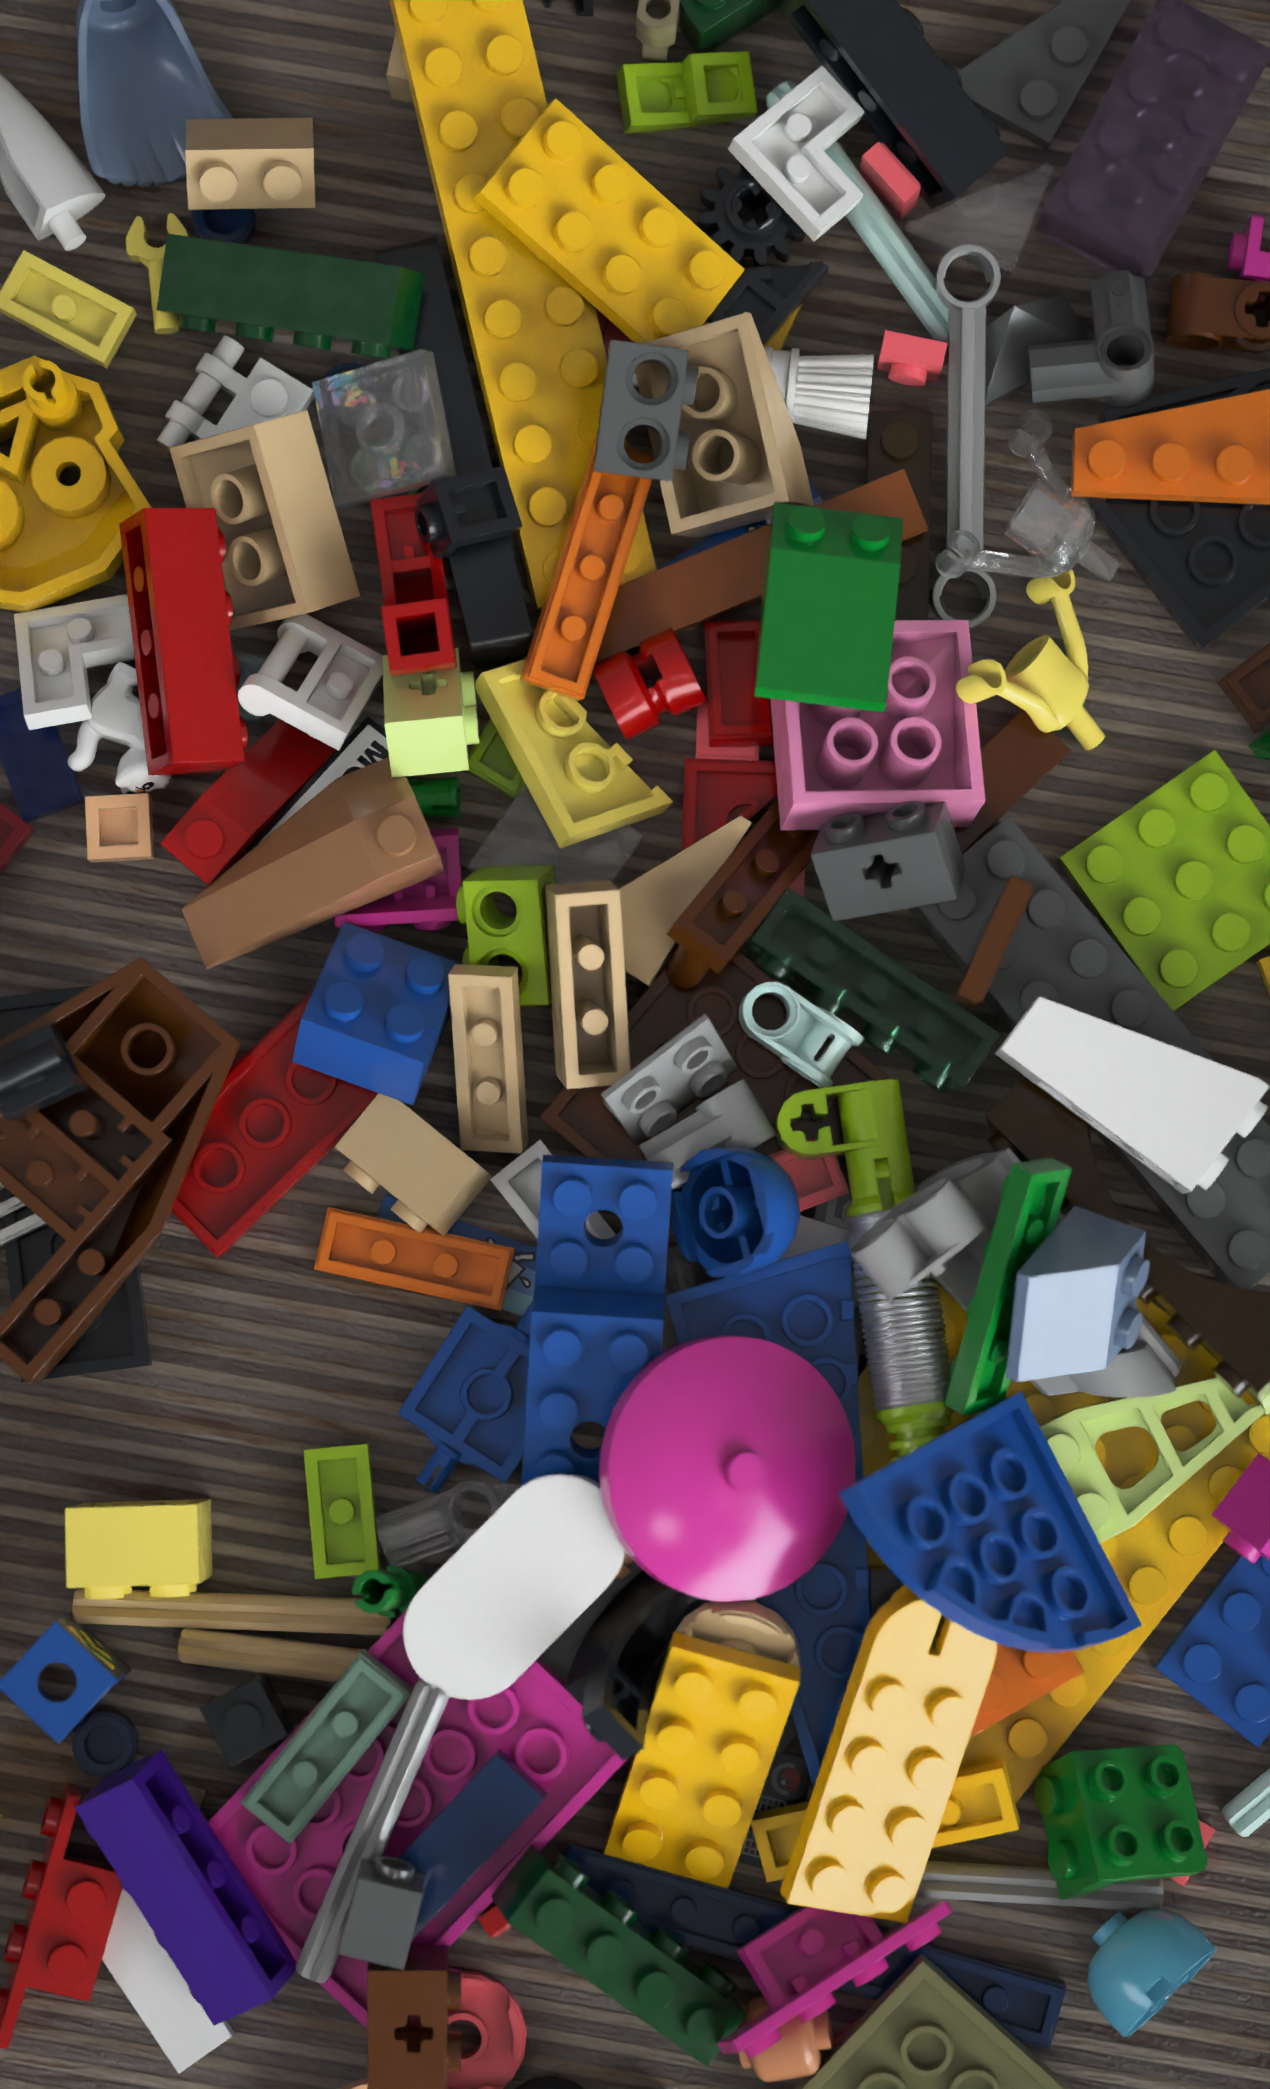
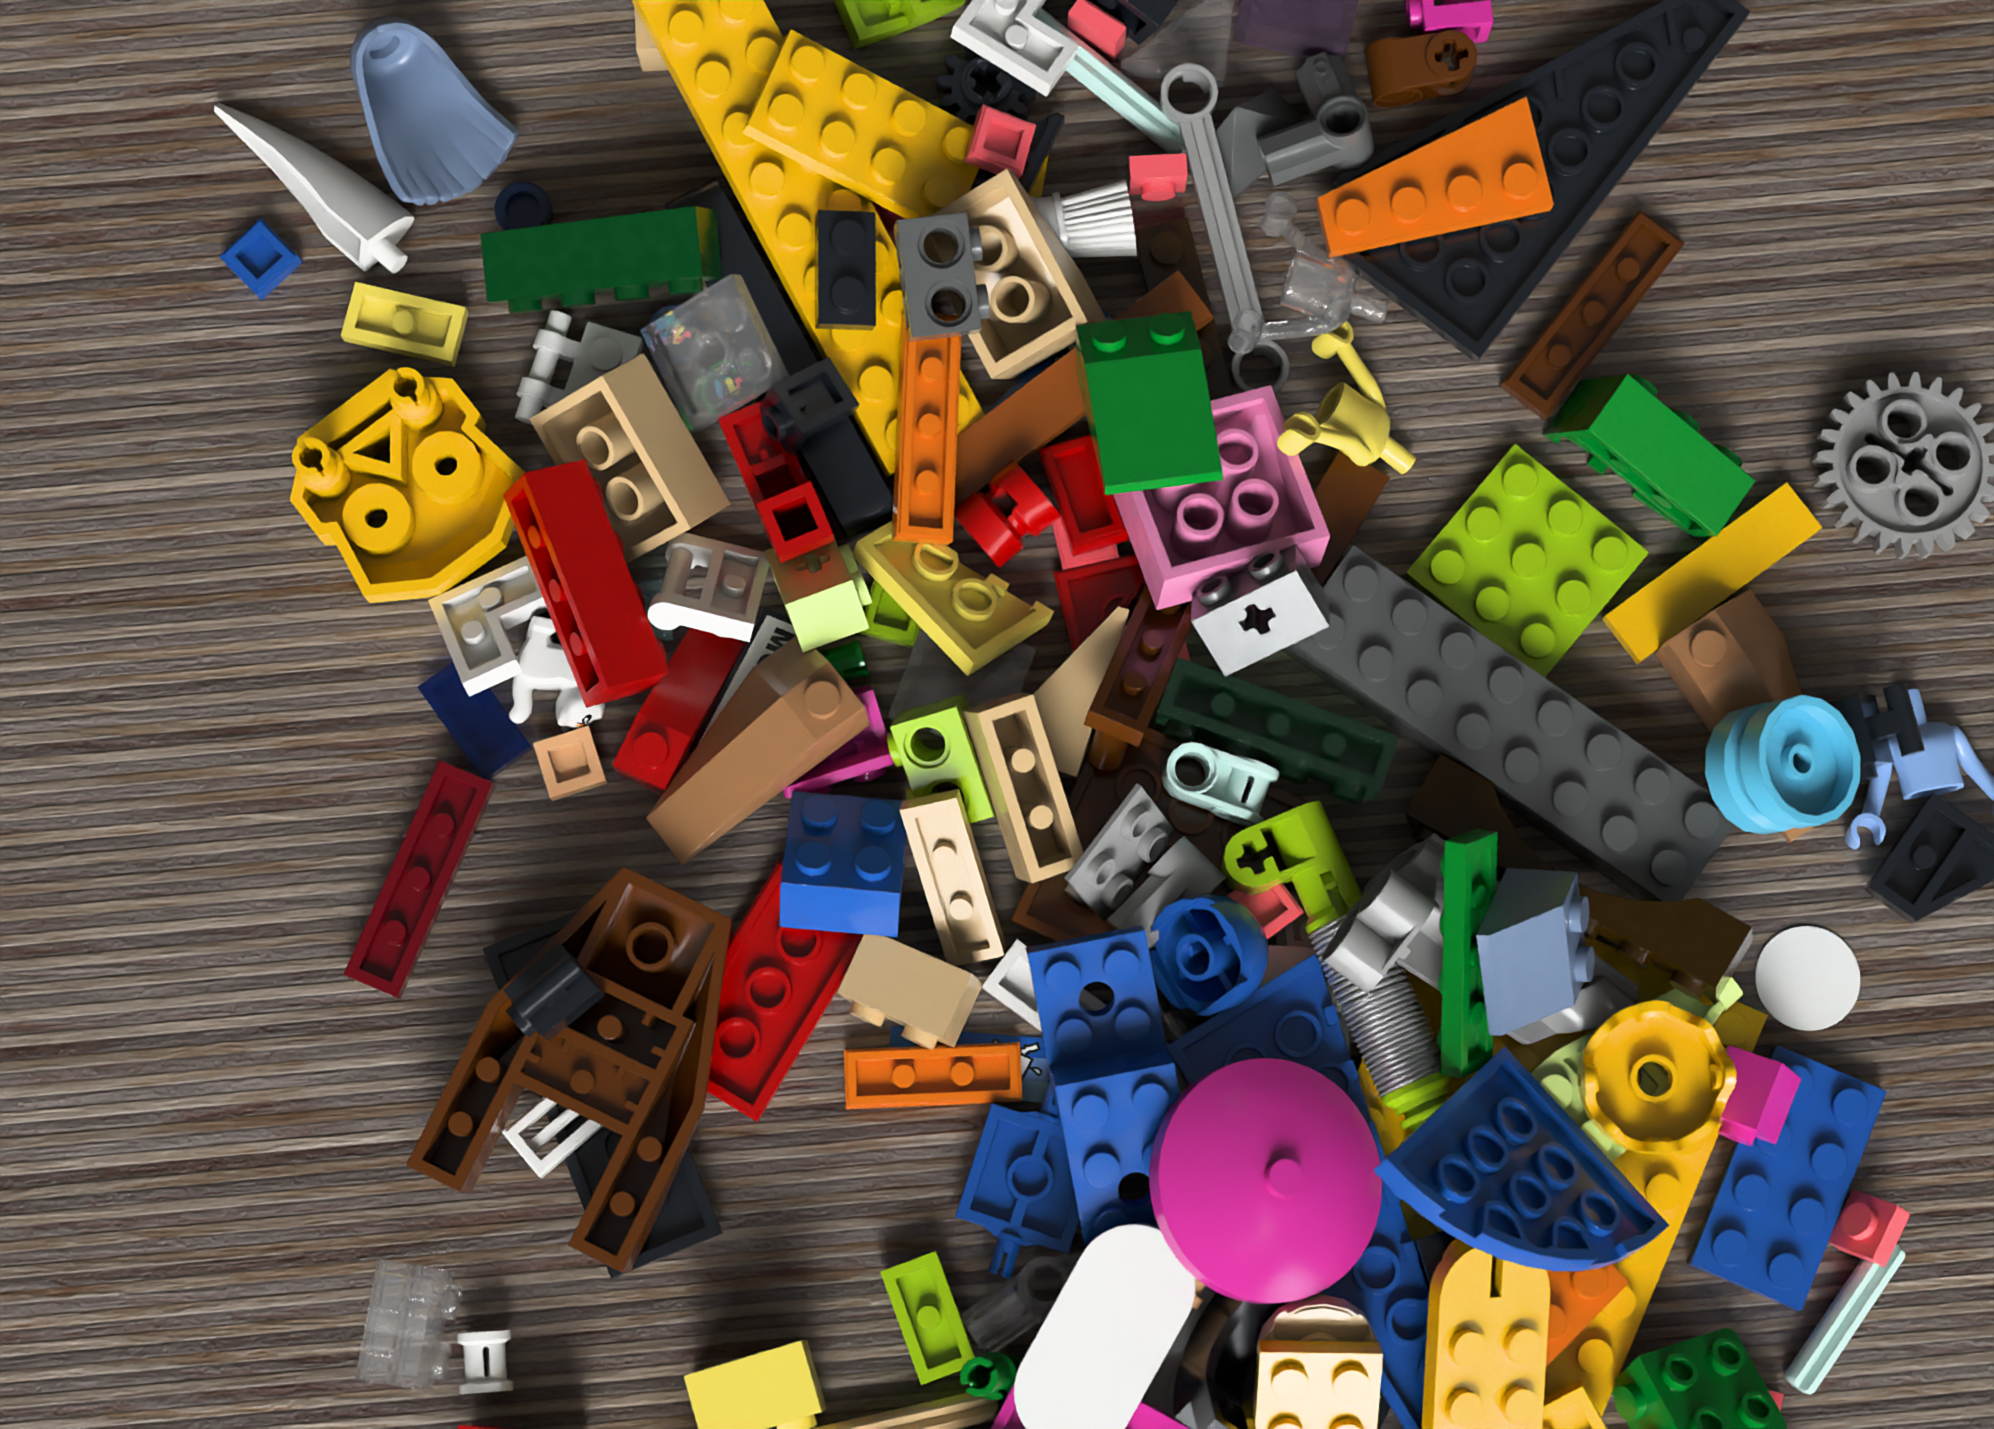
camera: 15 degrees left, 5 degrees down
(152, 259) = (473, 263): light yellow bar -> none
(250, 163) = (536, 155): tan brick -> none
(546, 375) = (845, 270): none -> black plate
(749, 279) = (999, 141): none -> coral tile
(993, 942) = (1372, 656): reddish brown tile -> none
(1138, 1092) = (1532, 752): white slope -> none
(1216, 1476) = (1697, 1071): none -> yellow plate

